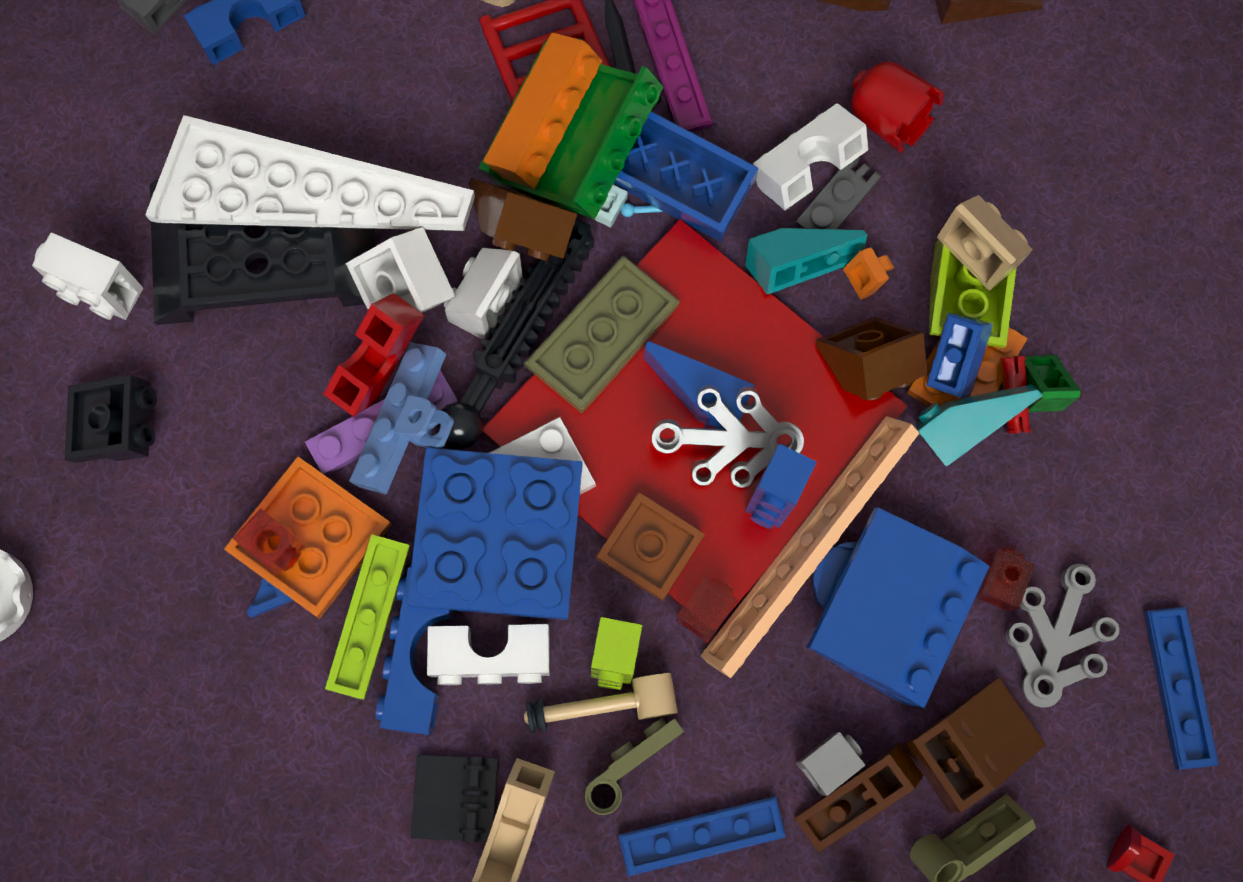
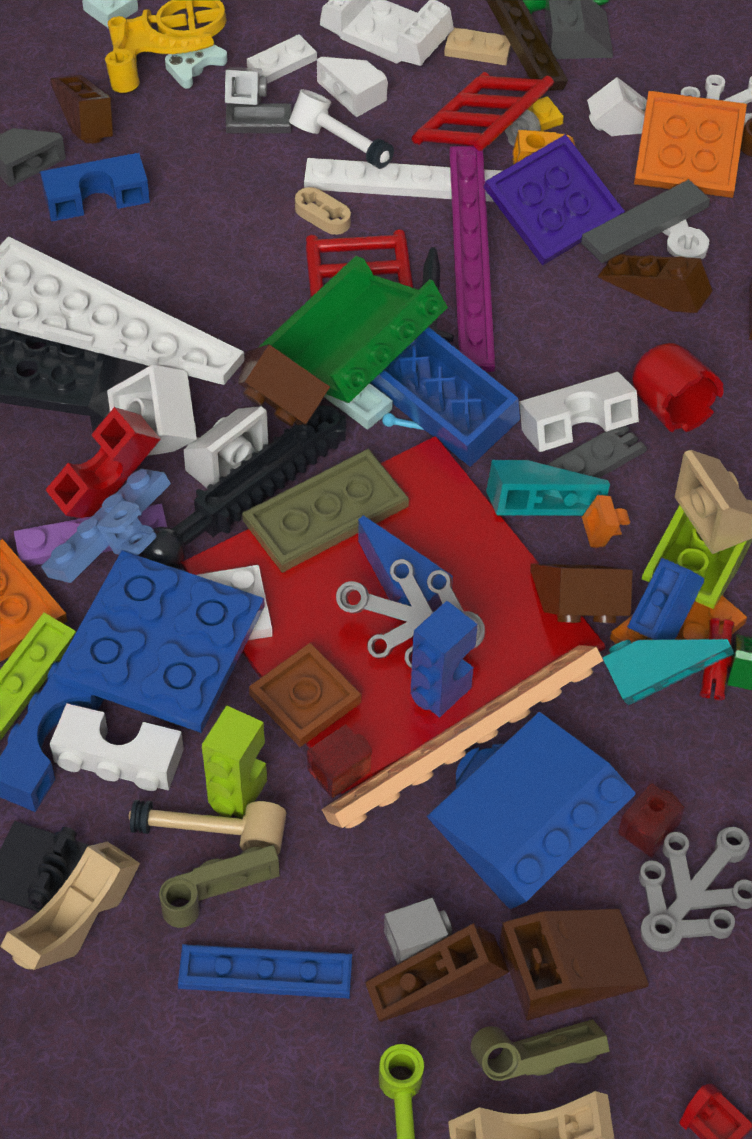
camera: 20 degrees right, 20 degrees down
(543, 110) = (334, 307): orange brick -> none

